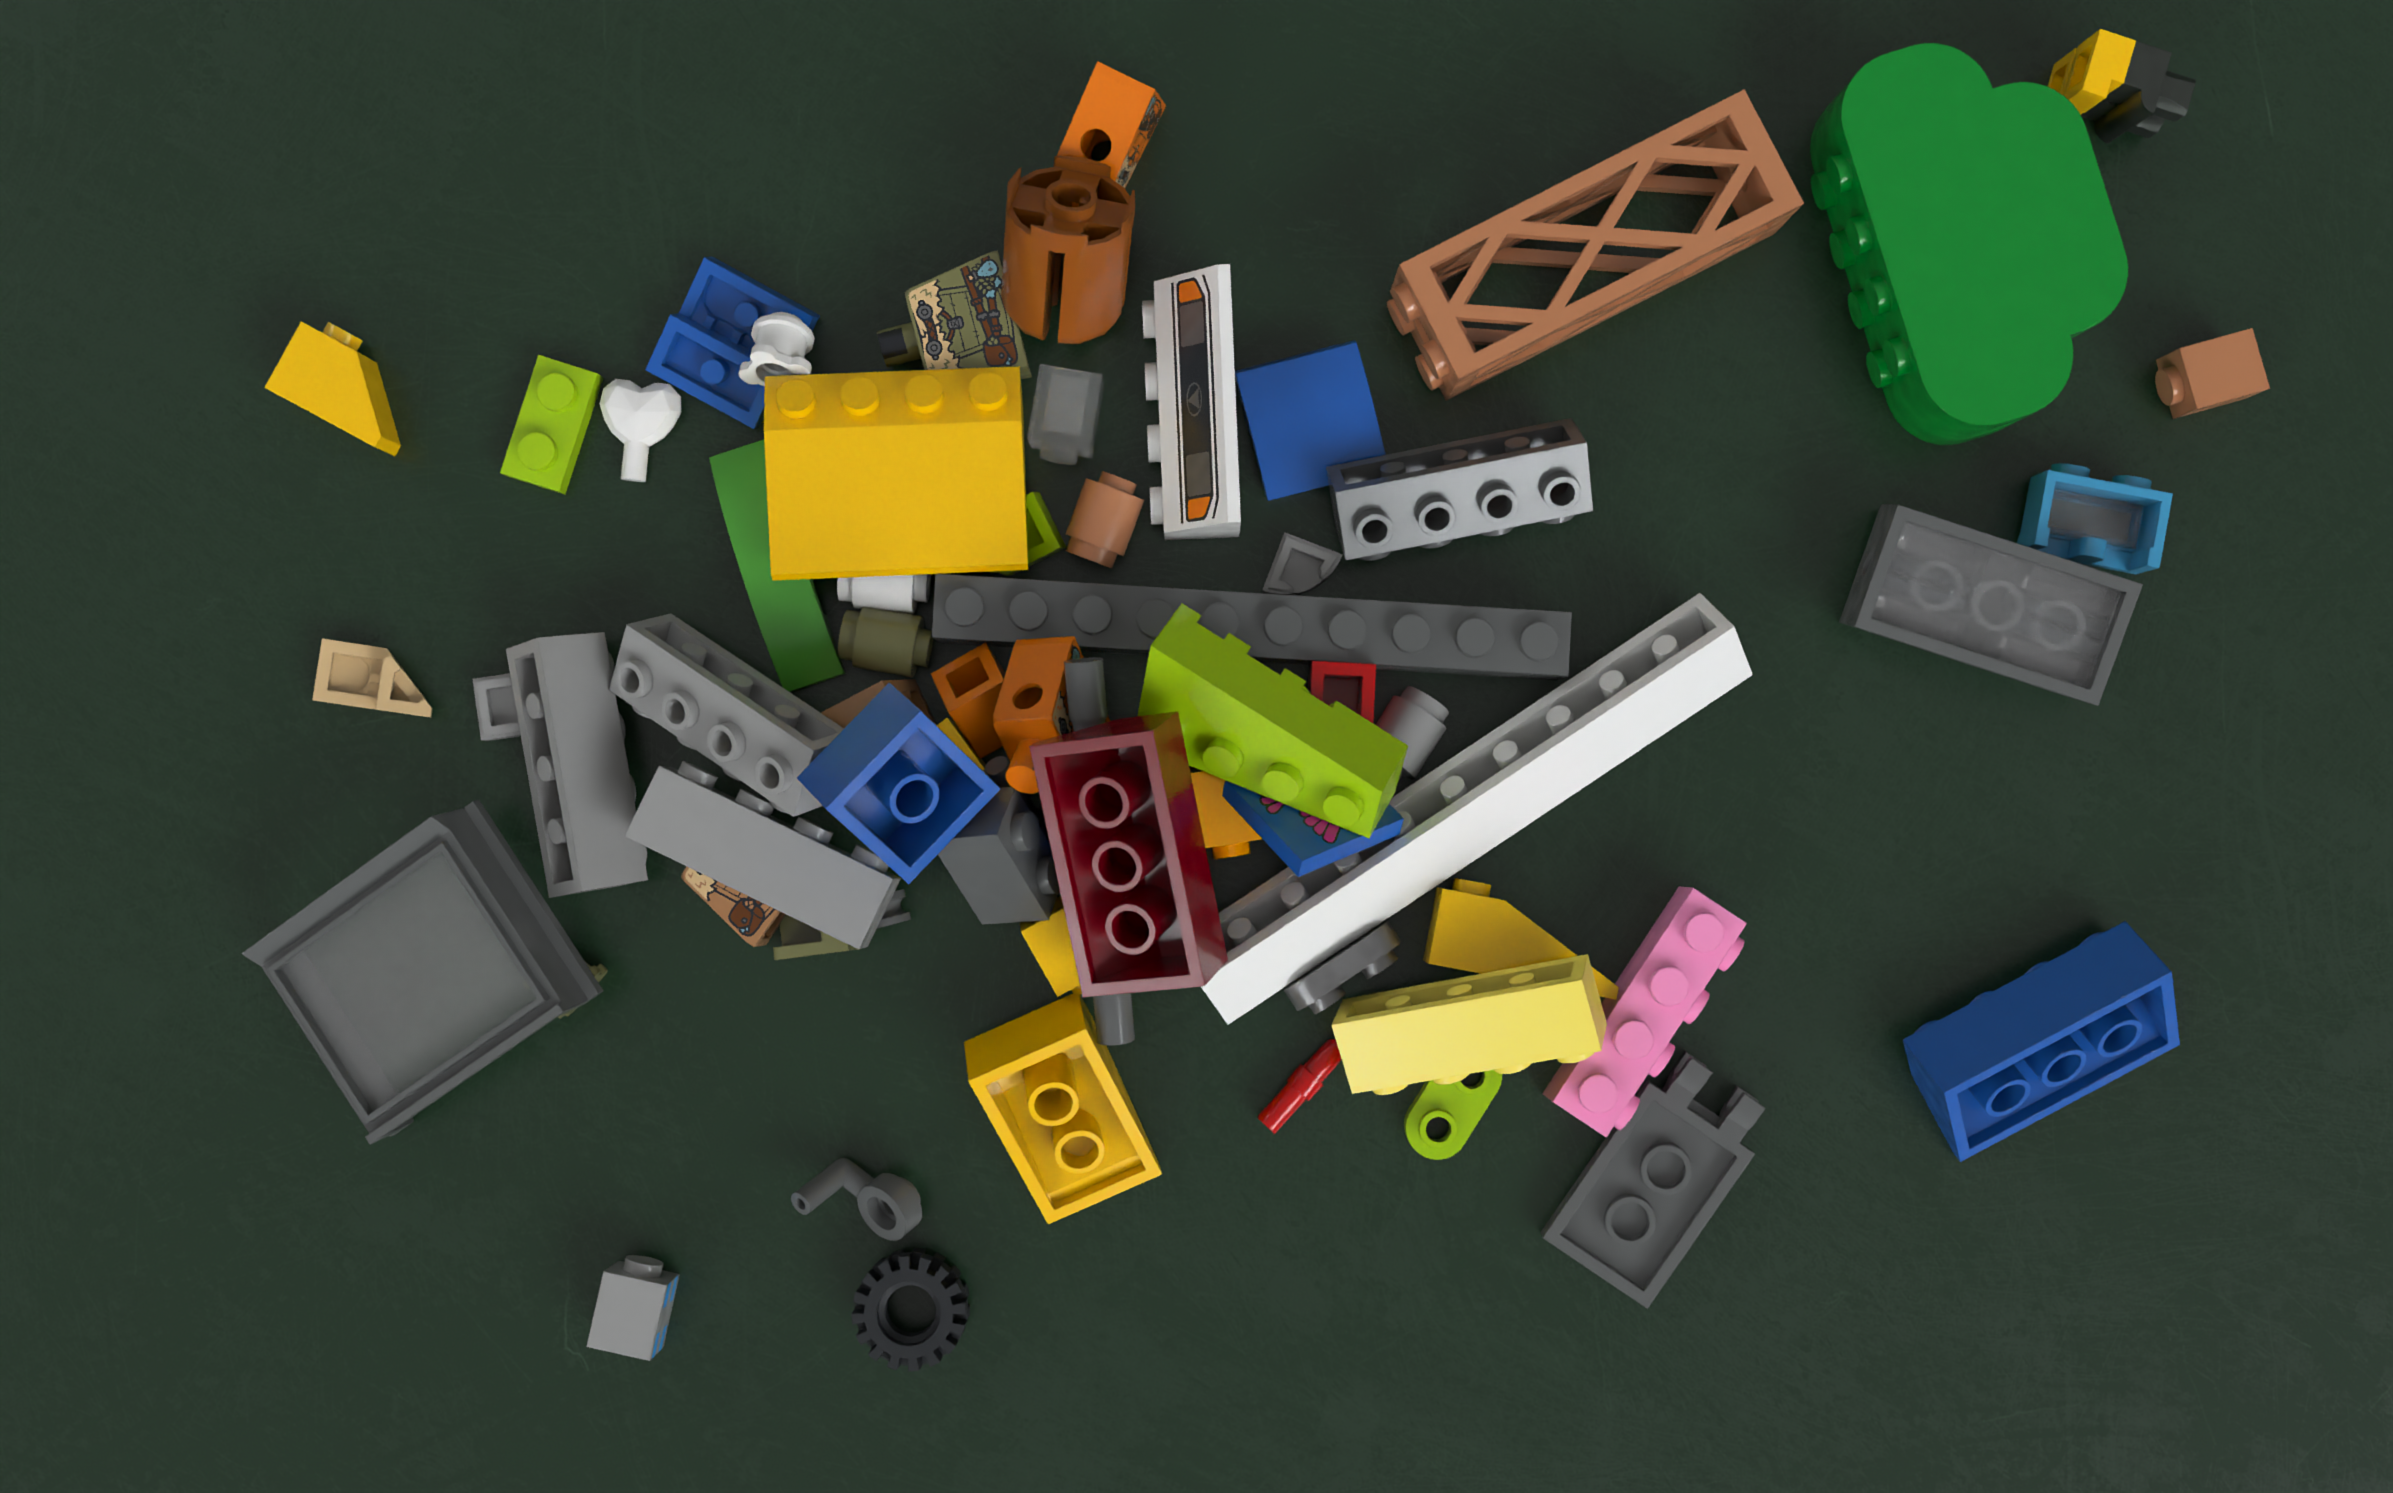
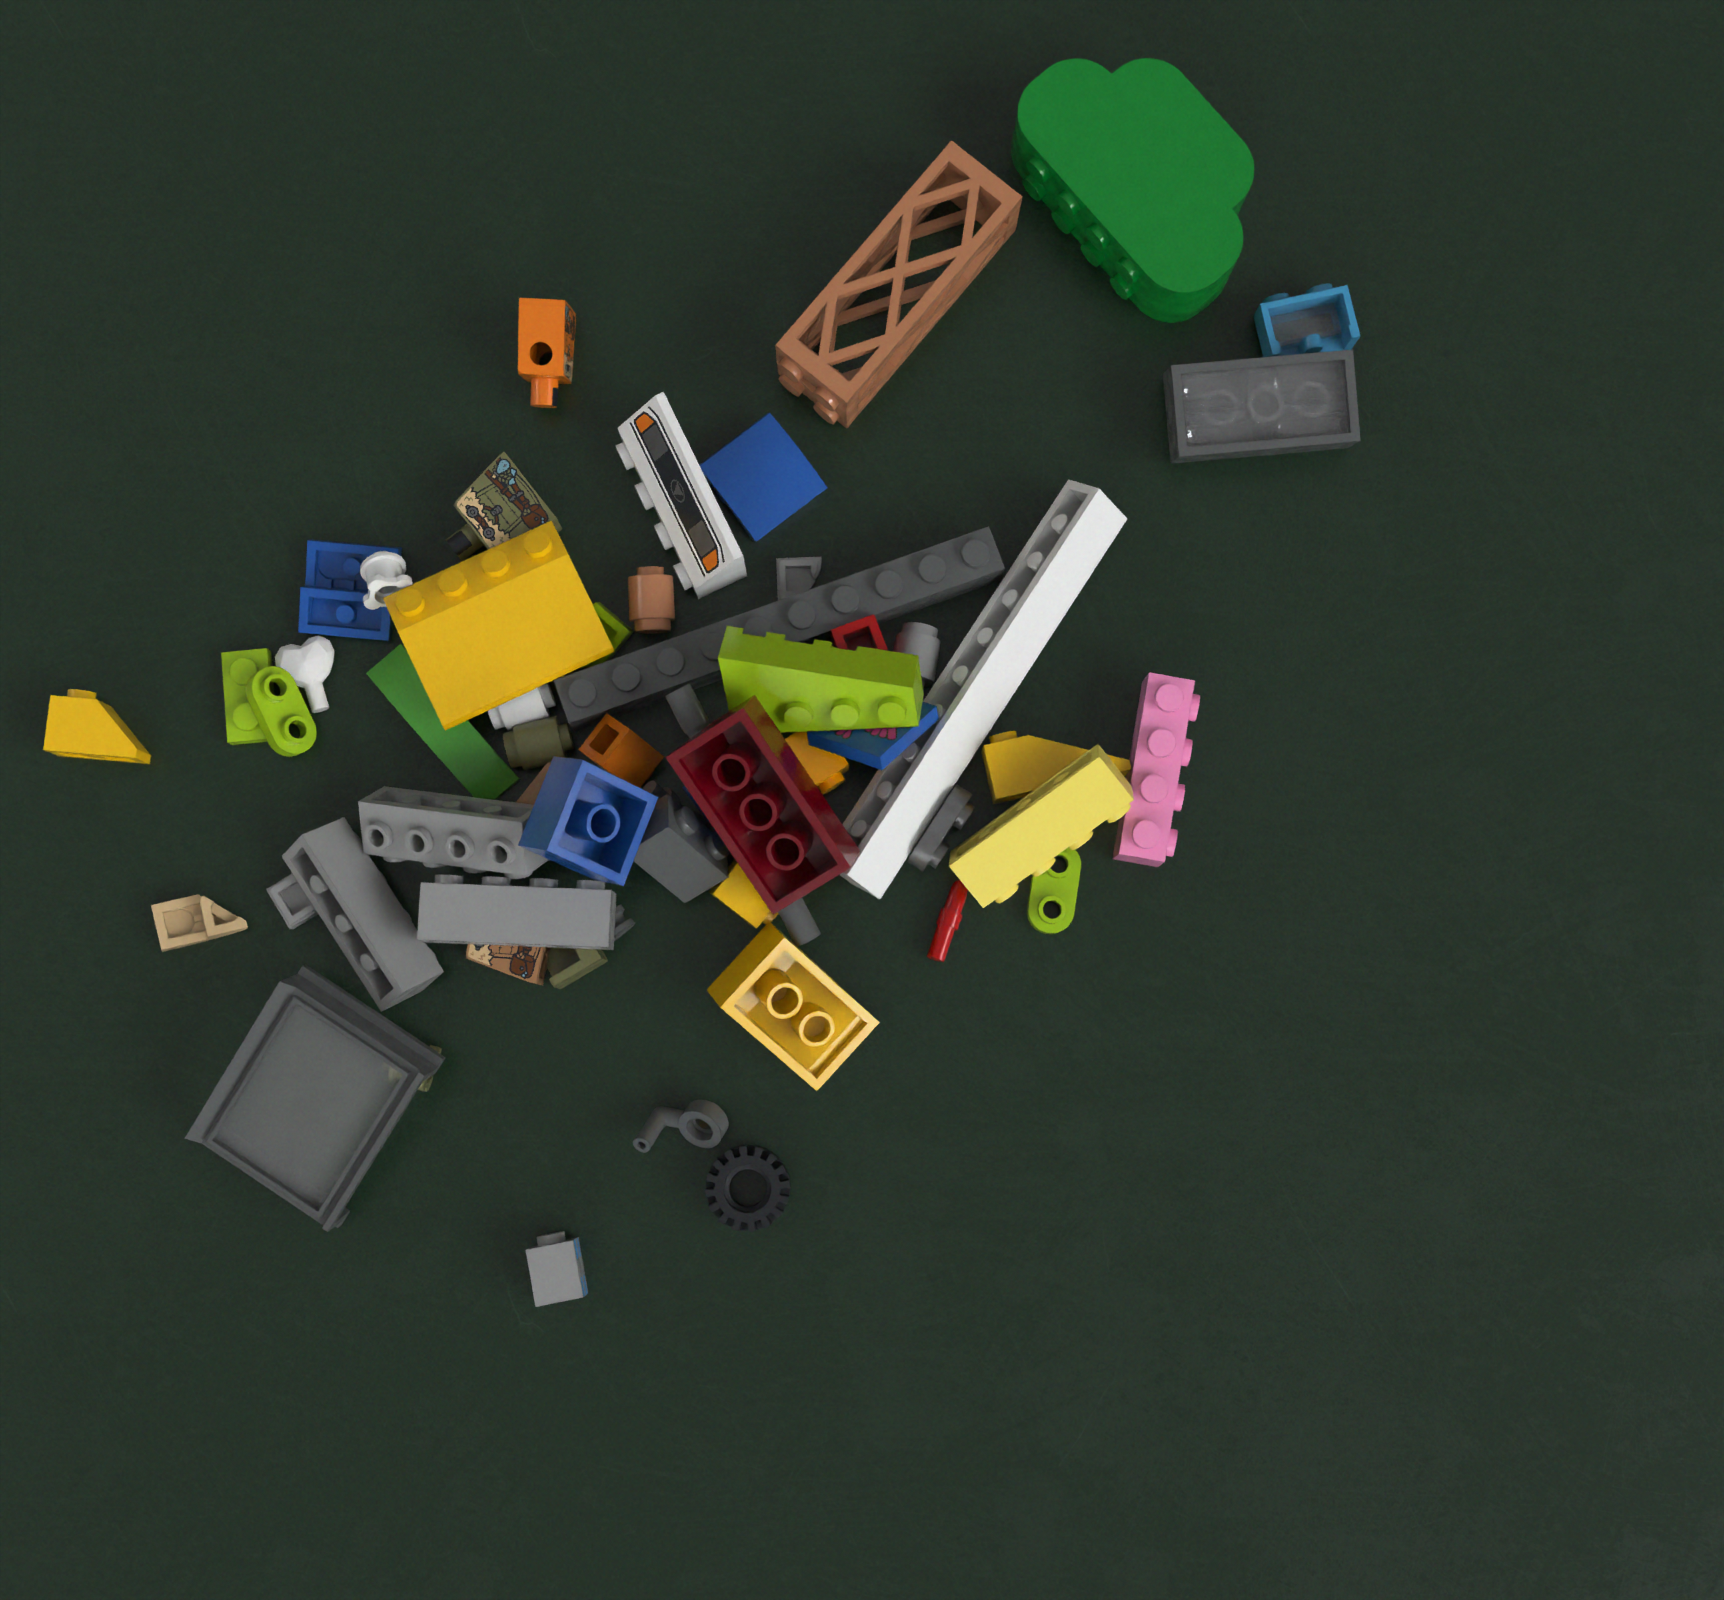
camera: 30 degrees left, 5 degrees down
(578, 464) = (280, 711): none -> lime plate
(1033, 703) = (655, 735): orange torso -> none
(1065, 413) = (595, 541): clear brick -> none
(1066, 249) = (527, 426): dark orange cylinder -> none
(1460, 489) = (880, 480): brick -> none
(1655, 1183) = (1213, 884): dark grey tile -> none
(2044, 1039) = (1427, 677): blue slope -> none
(2122, 85) = (1197, 39): hips -> none
(2211, 374) = (1338, 200): nougat brick -> none

